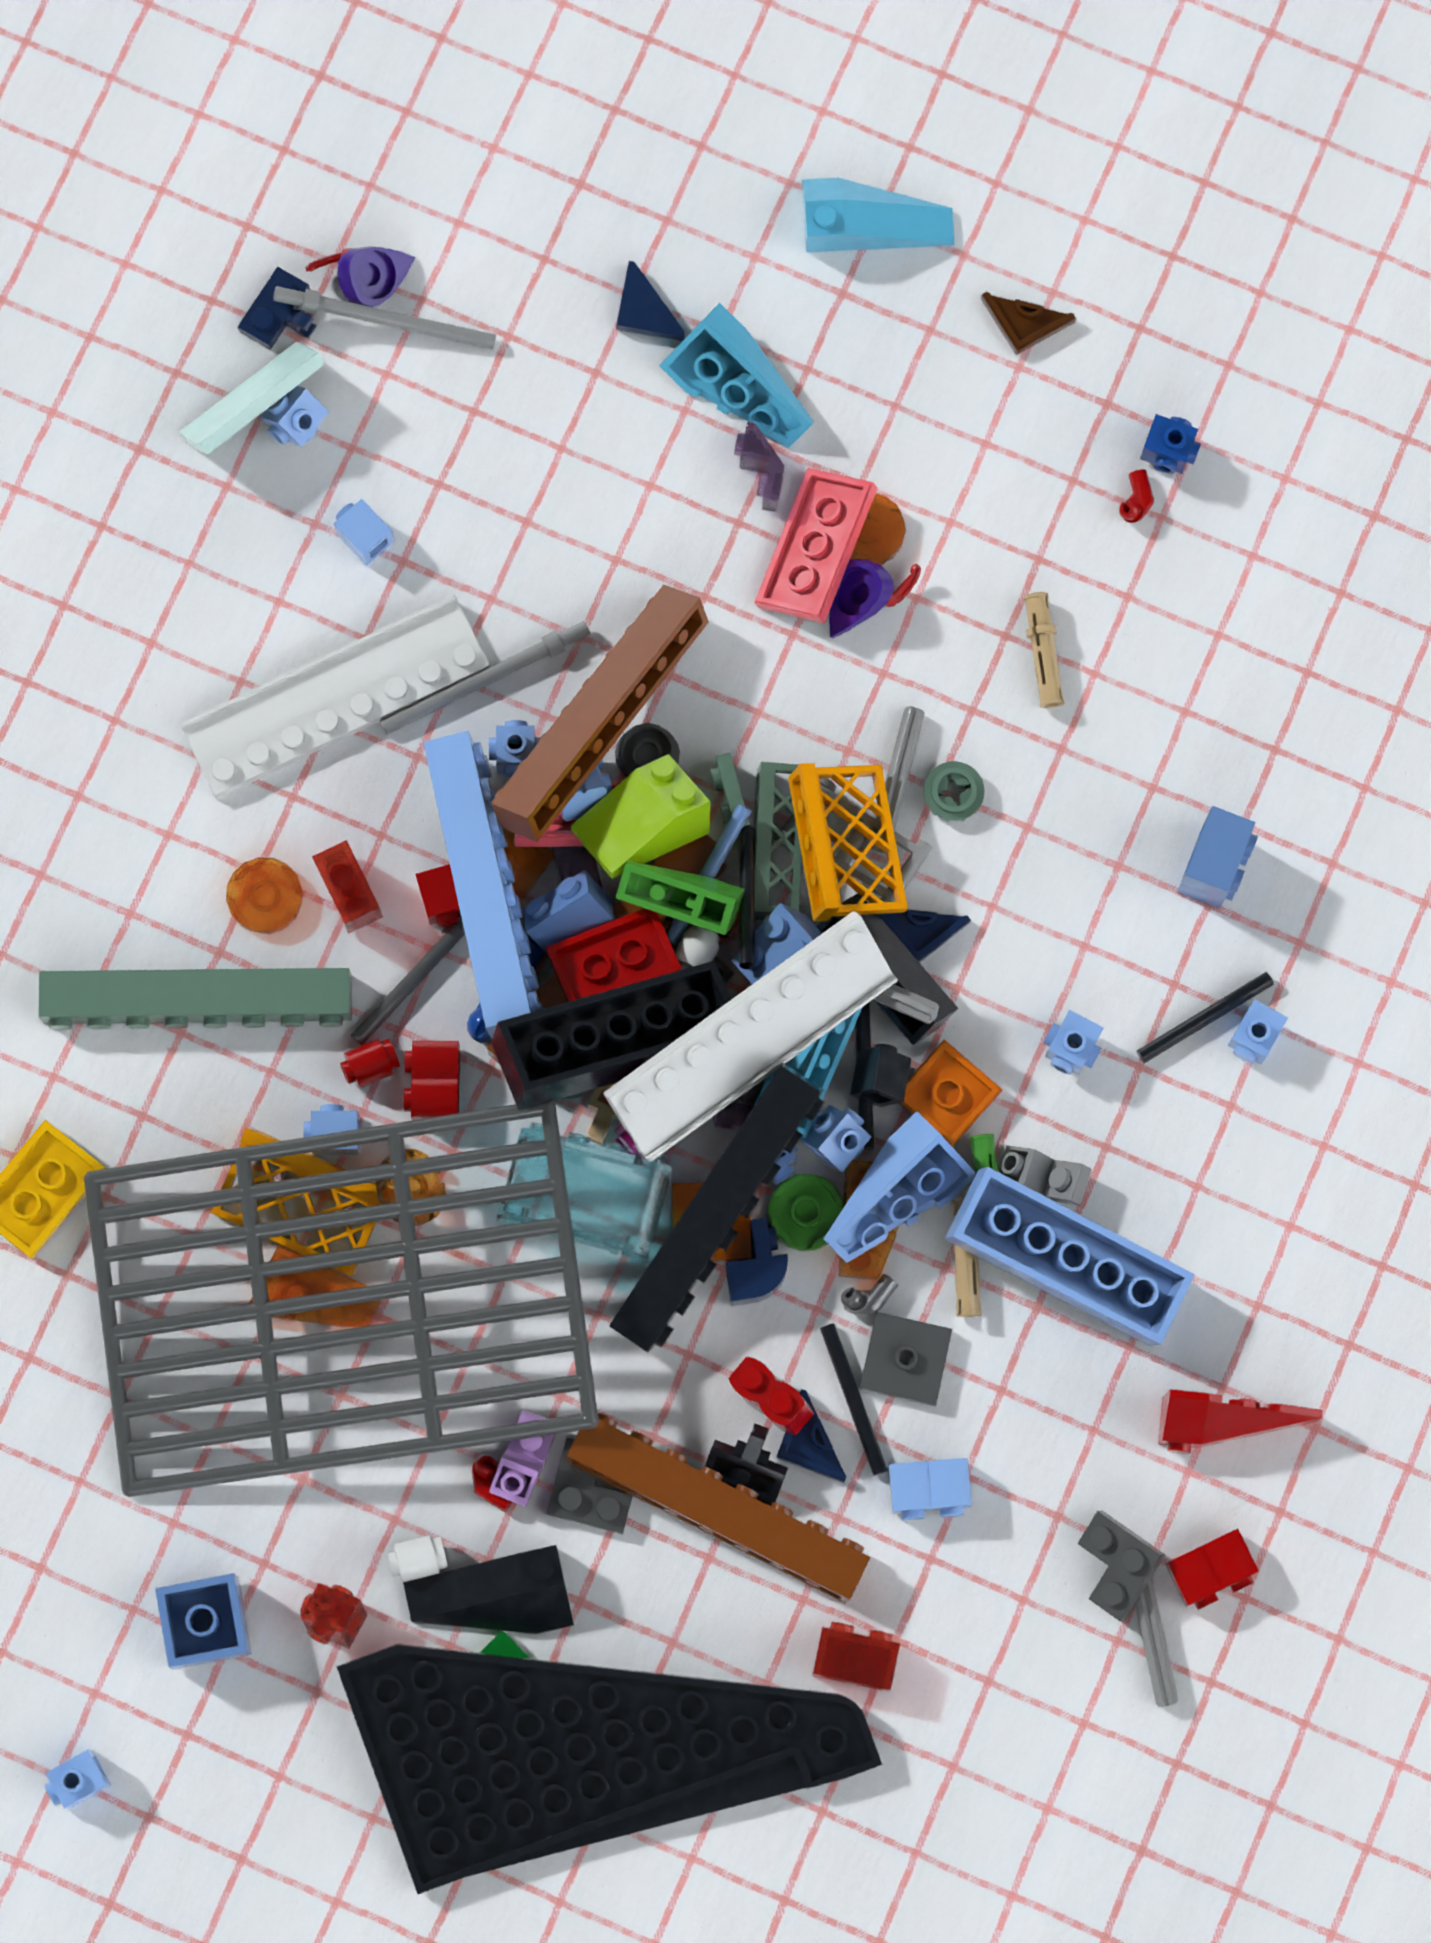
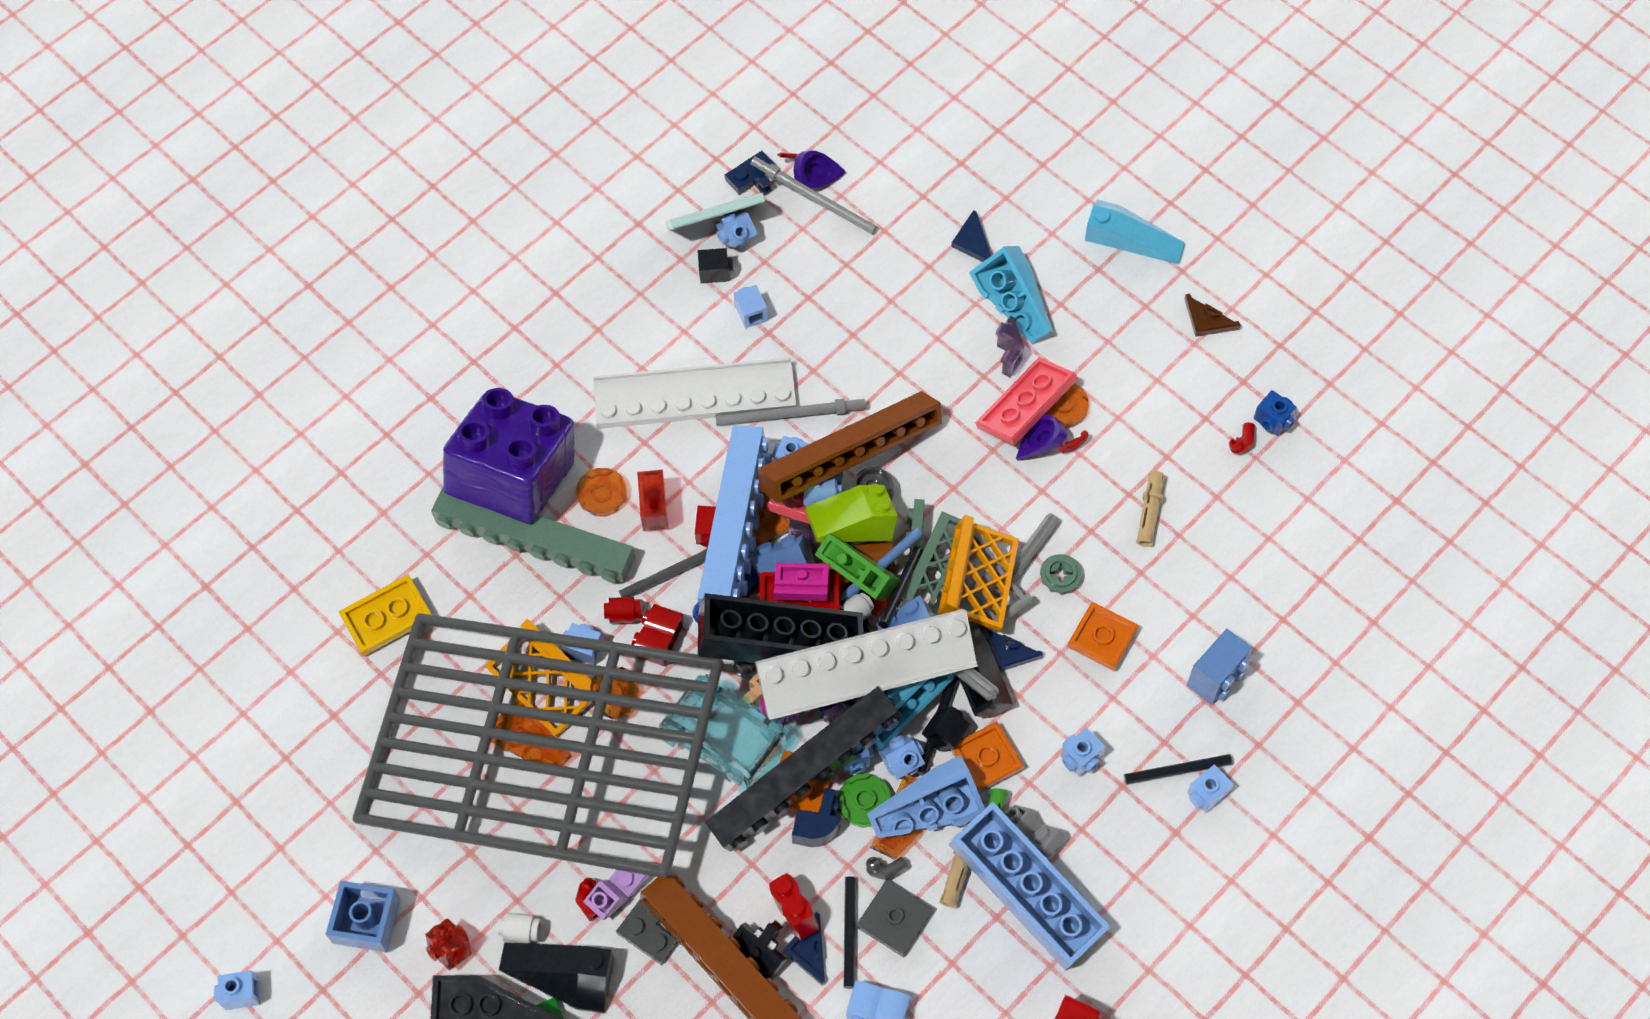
camera: 25 degrees right, 15 degrees down
(120, 899) = (508, 455): none -> dark purple brick
(284, 483) = (714, 265): none -> black brick
(613, 945) = (801, 581): none -> dark pink plate
(1042, 863) = (1102, 636): none -> orange plate

